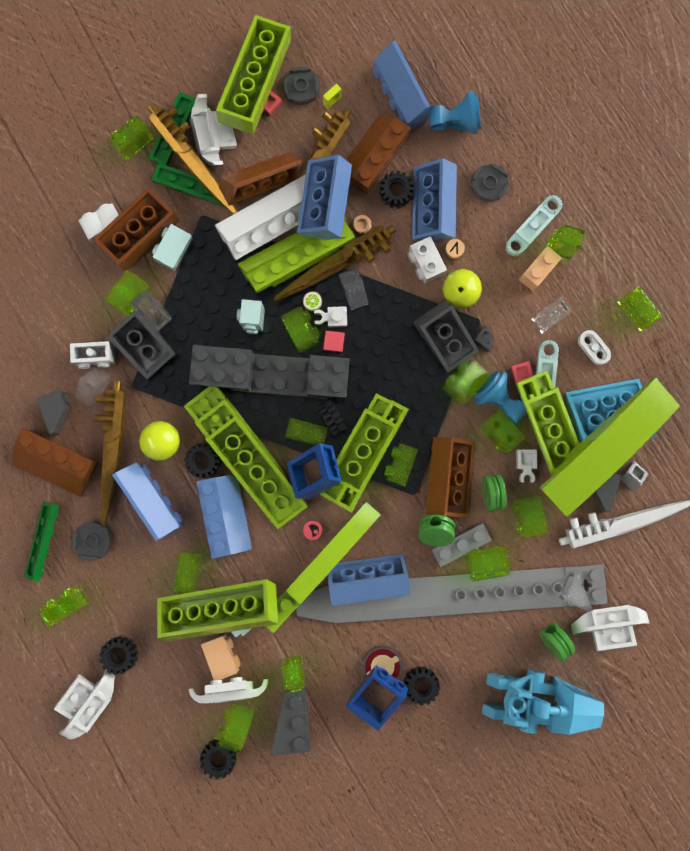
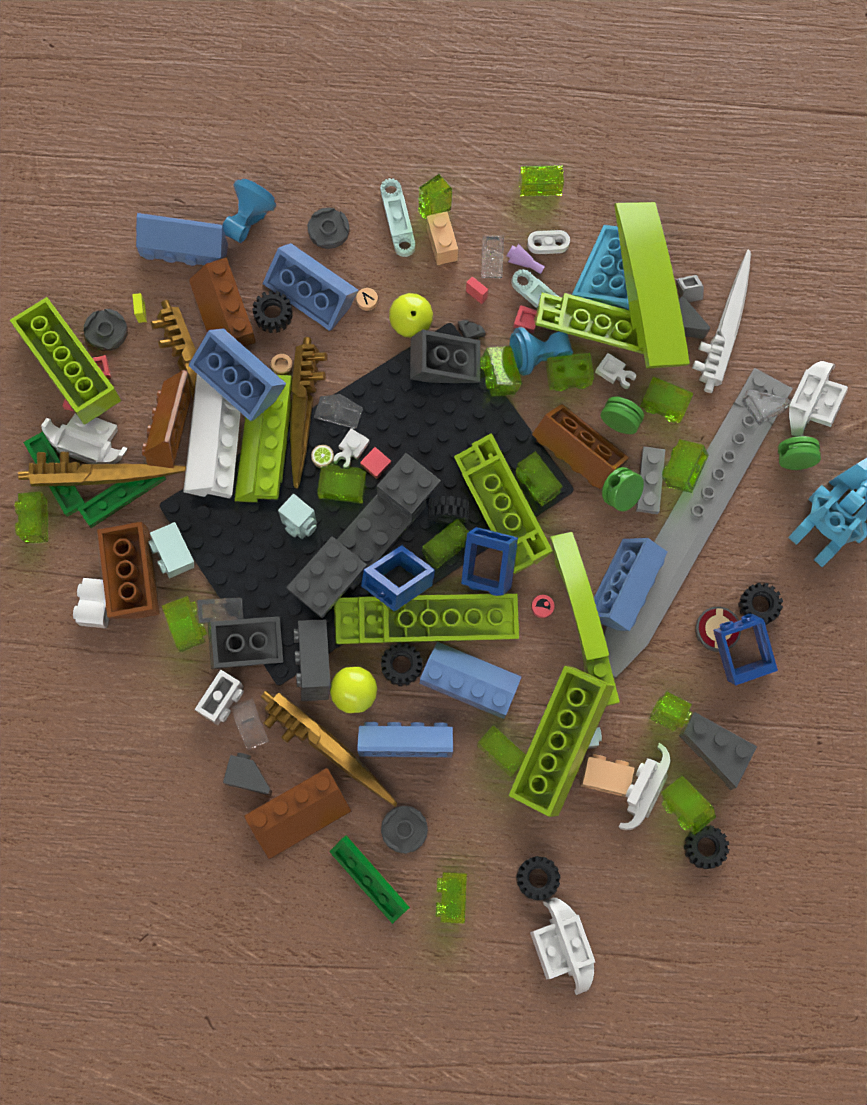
camera: 55 degrees left, 10 degrees down
(160, 397) = (312, 660): none -> dark grey wedge
(237, 412) = (388, 592): none -> blue window
(427, 260) = (360, 329): white brick -> none
(517, 322) = (476, 290): none -> coral tile
(567, 336) = (522, 258): none -> lavender cone

